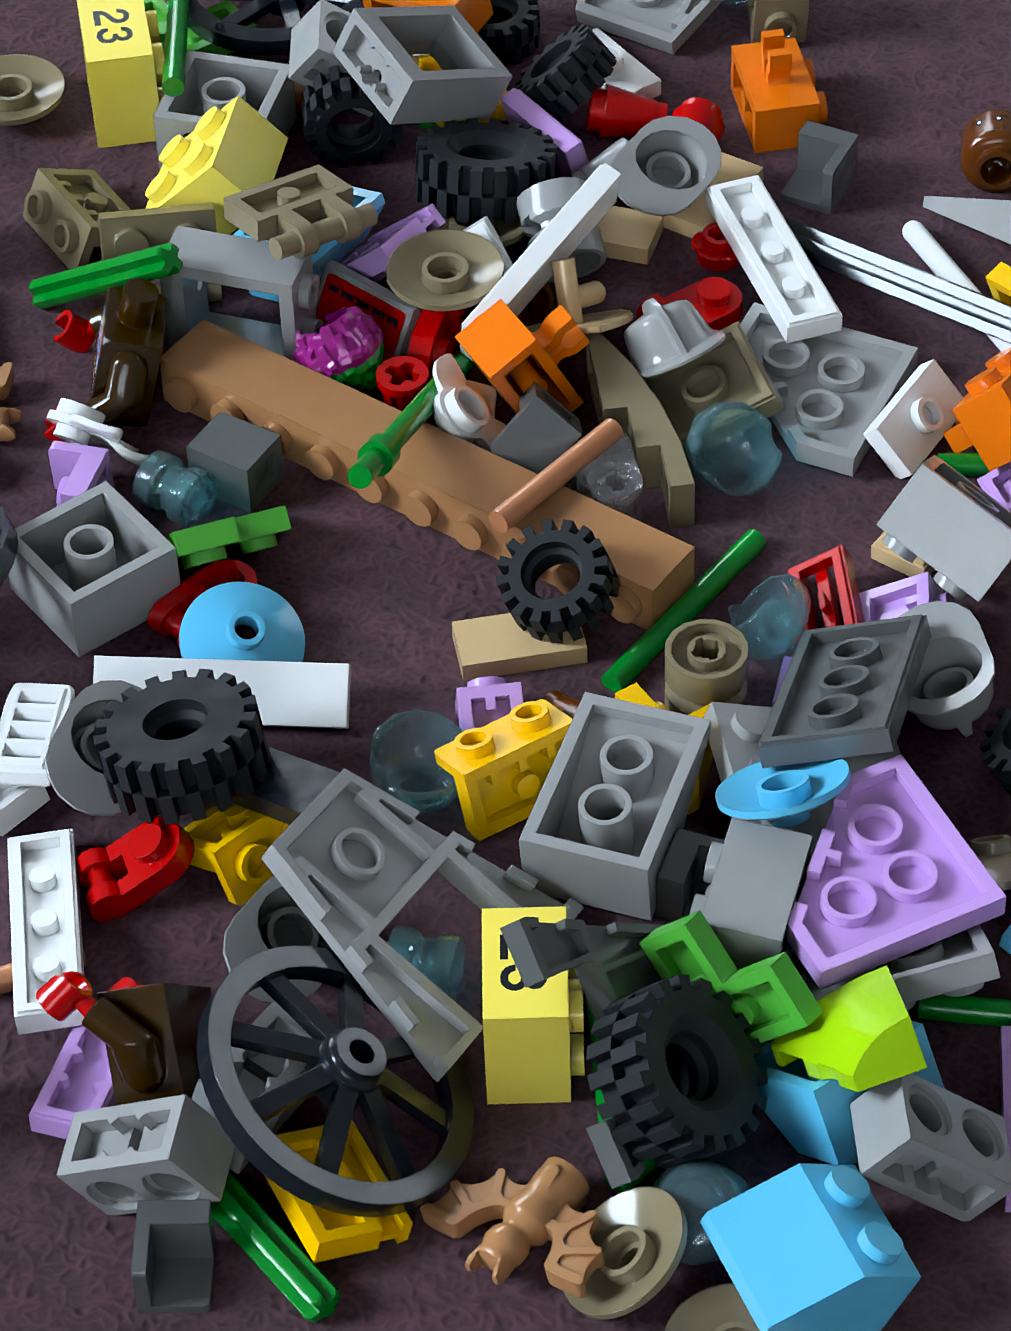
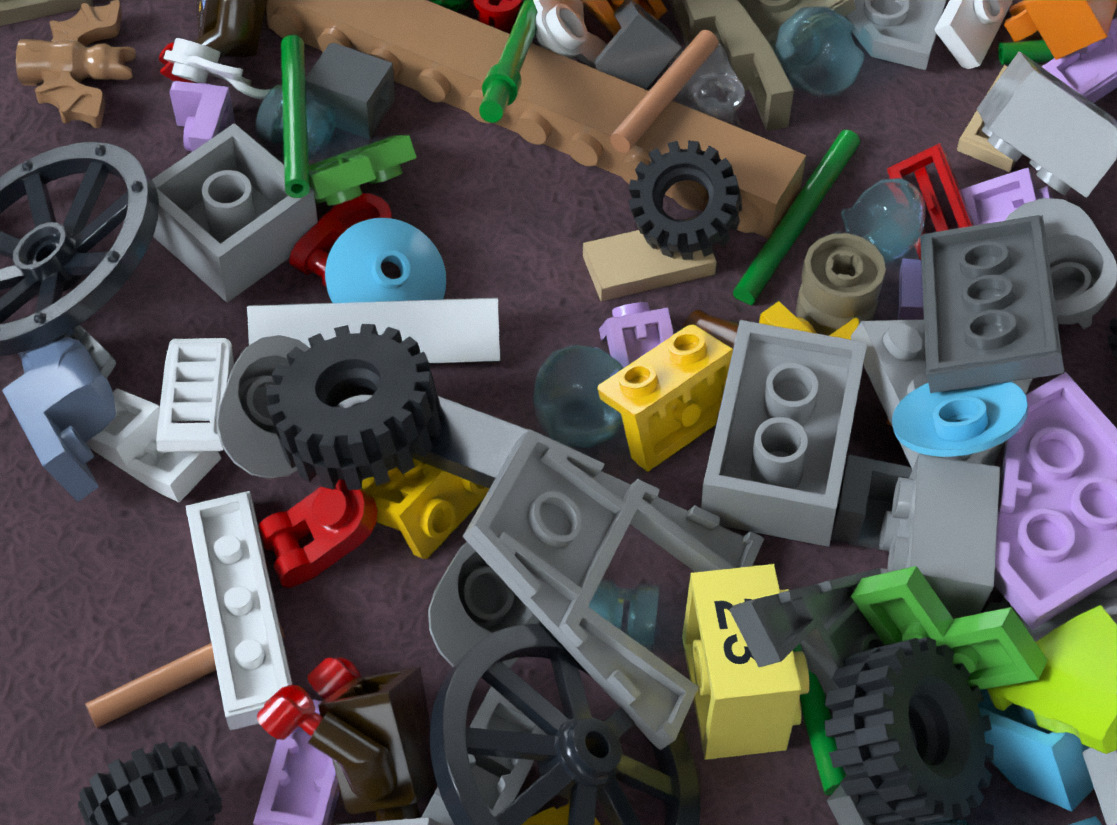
camera: 10 degrees left, 10 degrees up
(168, 478) = (294, 117): none -> green piece

